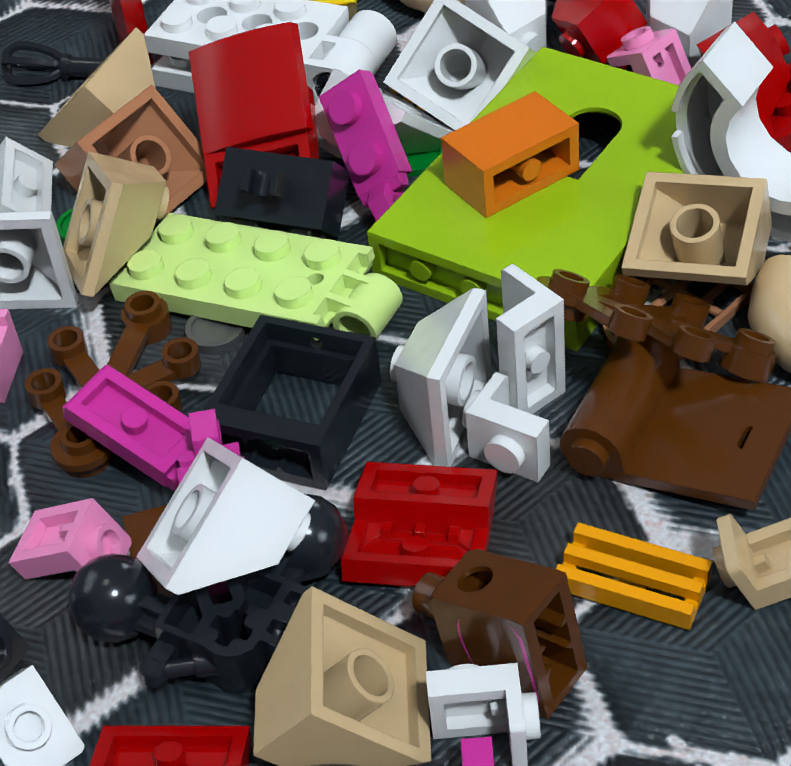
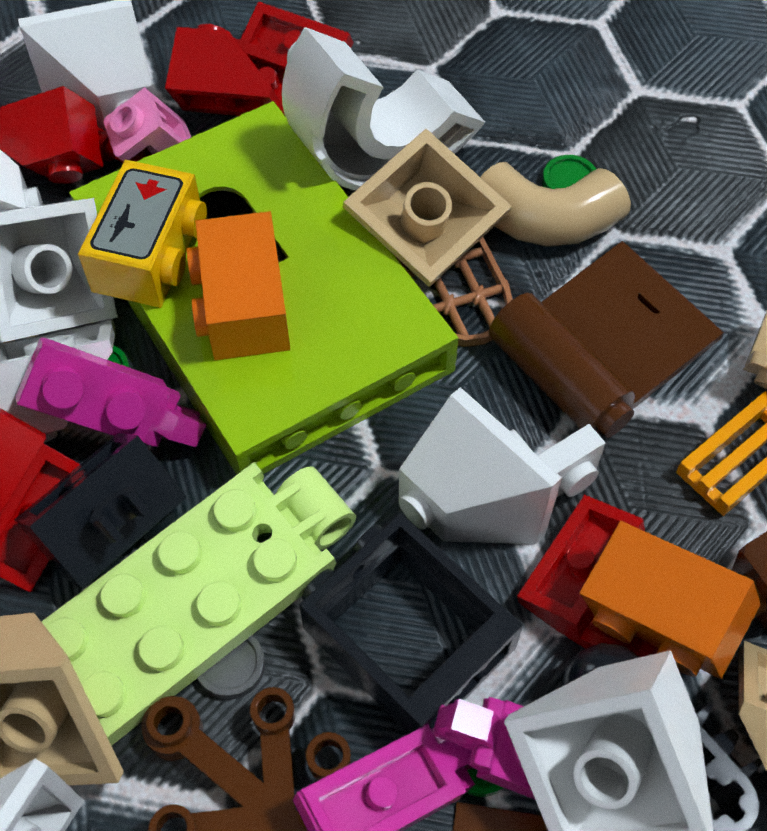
camera: 70 degrees left, 15 degrees up
(395, 530) = (670, 600): none -> orange brick
(506, 72) = (142, 234): none -> brick
(531, 340) = (488, 373): white panel -> none
(677, 326) = (470, 332): reddish brown plant -> none

